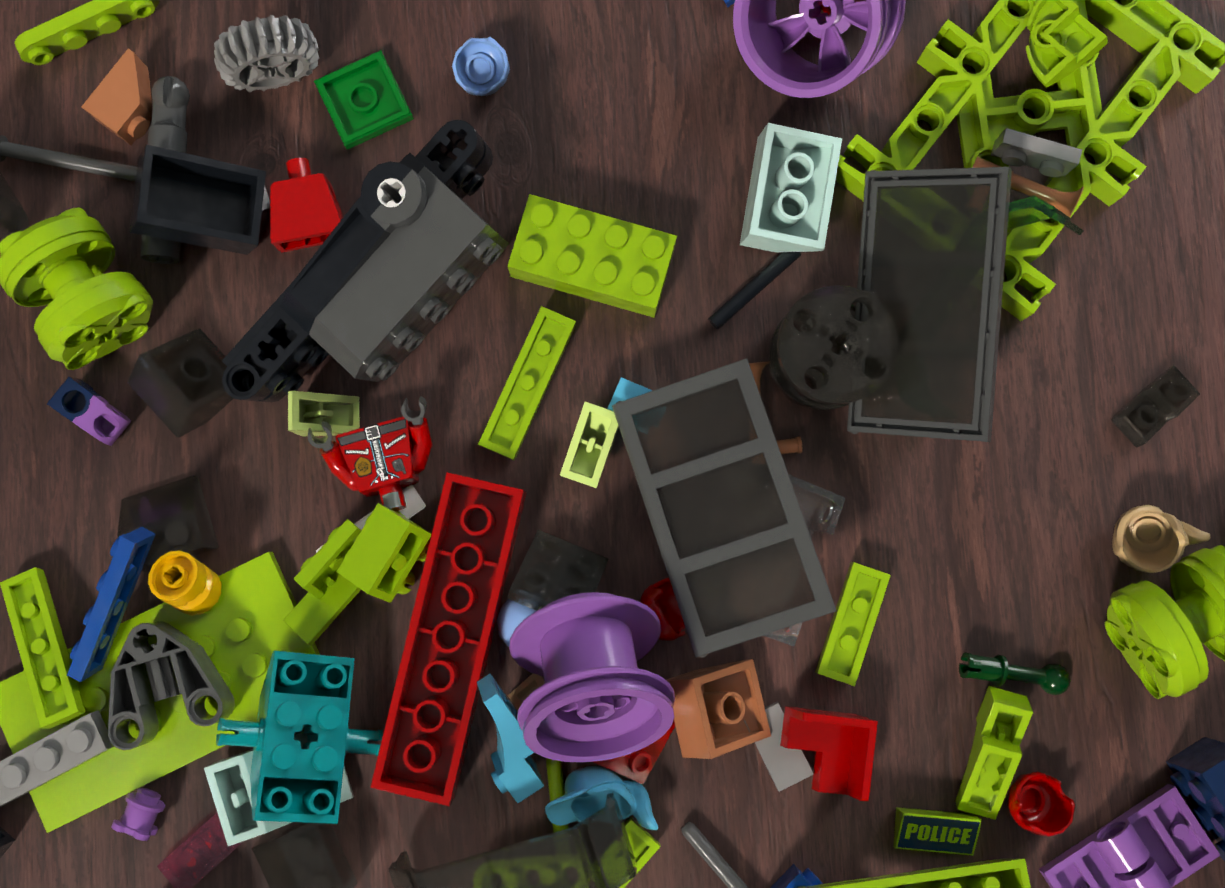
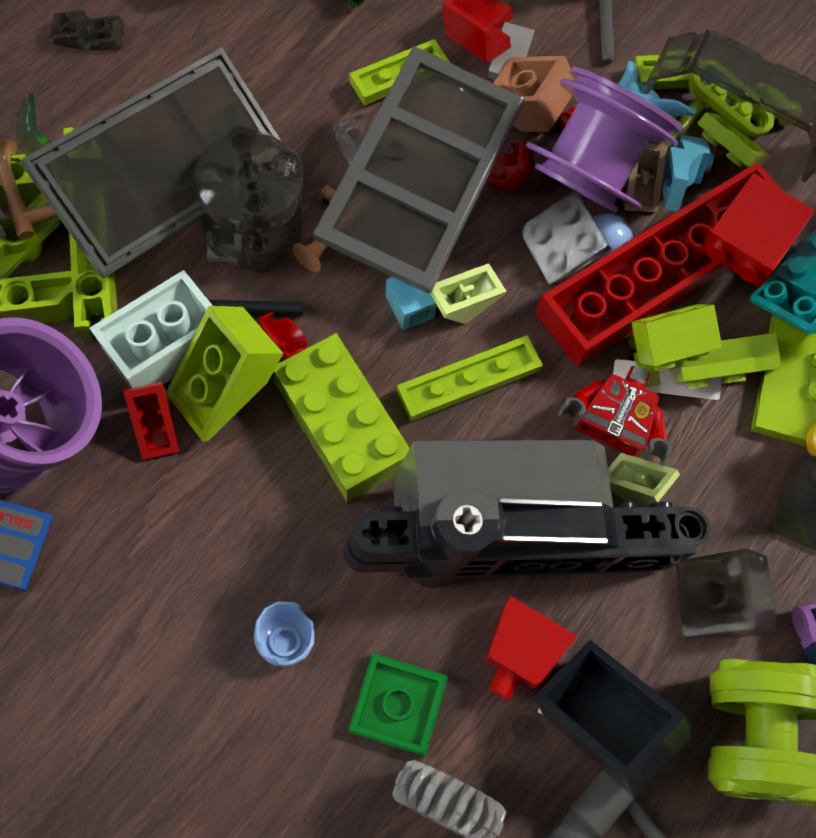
camera: 145 degrees left, 15 degrees down
(389, 713) = (756, 230): none -> red brick
(490, 821) = (741, 148): none -> lime plate
(700, 274) = (284, 334): none -> red hair
(711, 203) = (222, 369): none -> lime slope
(727, 128) = (152, 420): none -> red slope

